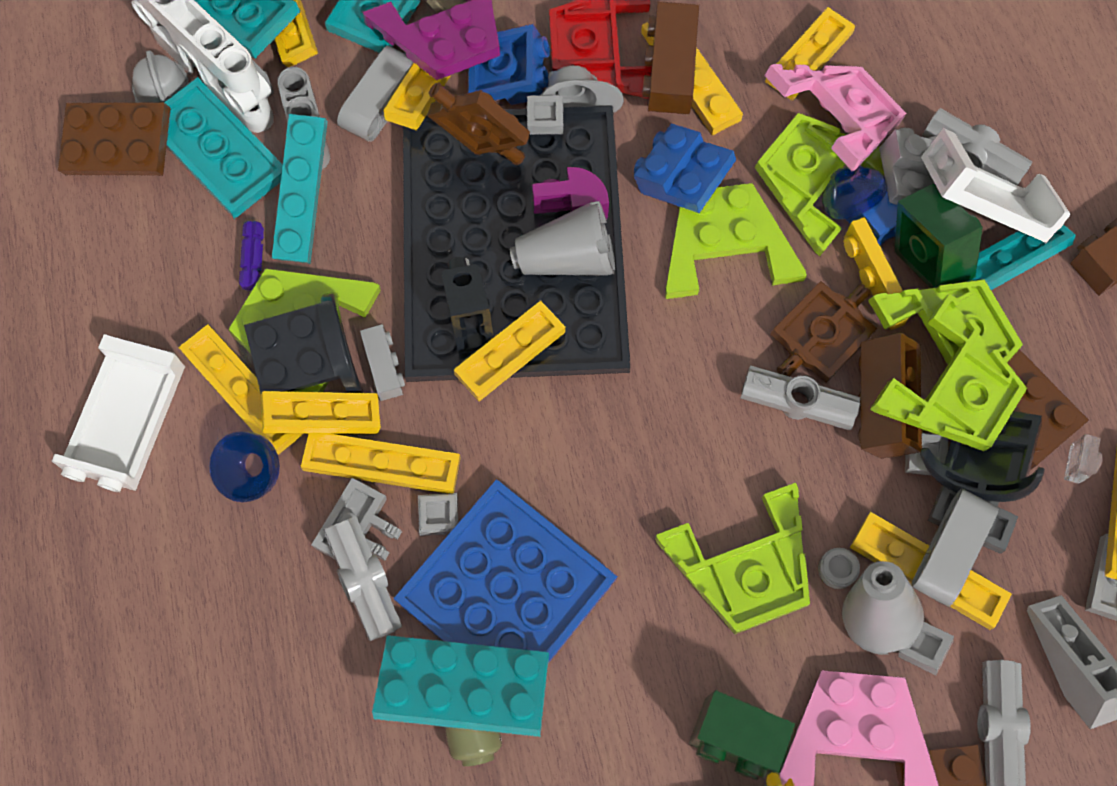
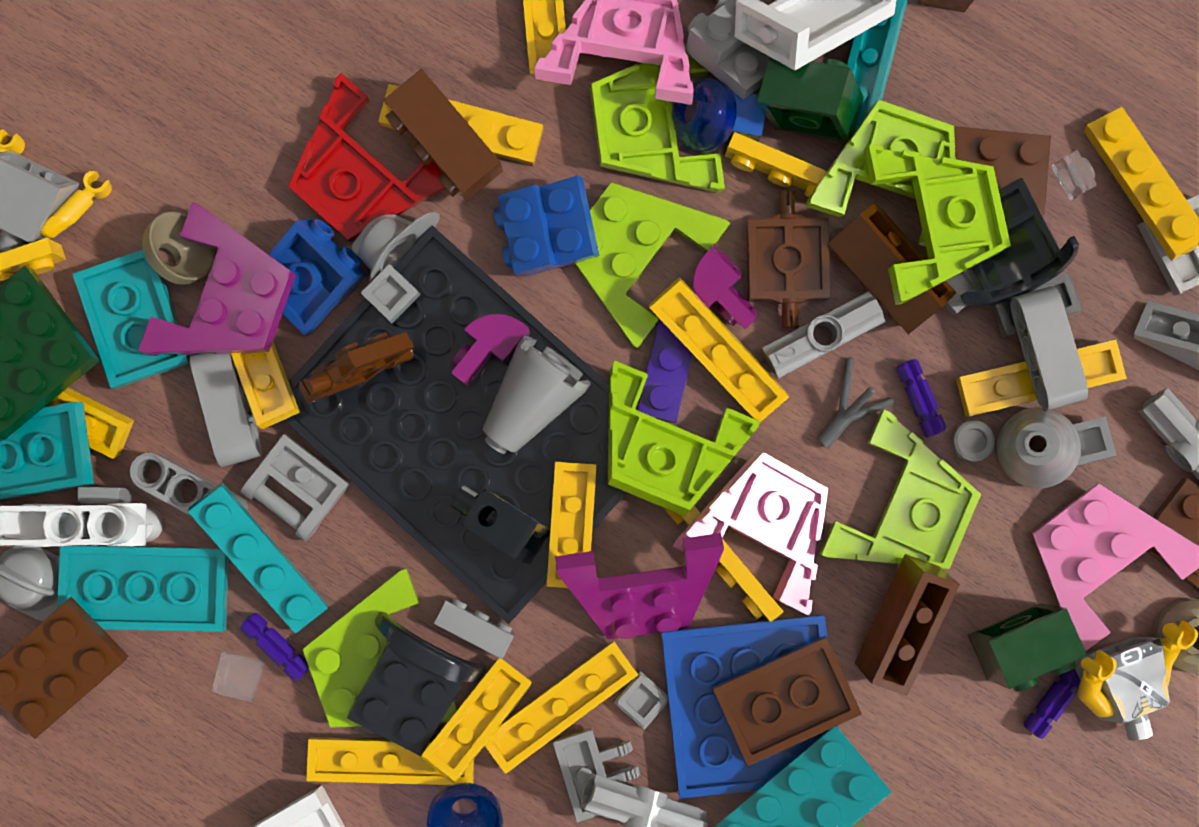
camera: 50 degrees left, 15 degrees up
(210, 251) = (237, 676): none -> clear tile
(379, 176) = (304, 477): none -> light grey plate
(505, 441) = (643, 600): none -> magenta wing
(532, 601) = (786, 700): none -> reddish brown plate
(585, 485) = (734, 571): none -> yellow plate
(613, 368) = (662, 459): none -> lime wing
(653, 473) = (777, 511): none -> wing
(667, 633) = (906, 624): none -> reddish brown brick
(681, 322) = (666, 376): none -> dark purple plate
(719, 338) = (718, 350): none -> yellow plate
(758, 296) = (715, 281): none -> magenta brick
(763, 465) = (846, 416): none -> dark grey plant
(829, 504) = (921, 398): none -> dark purple axle

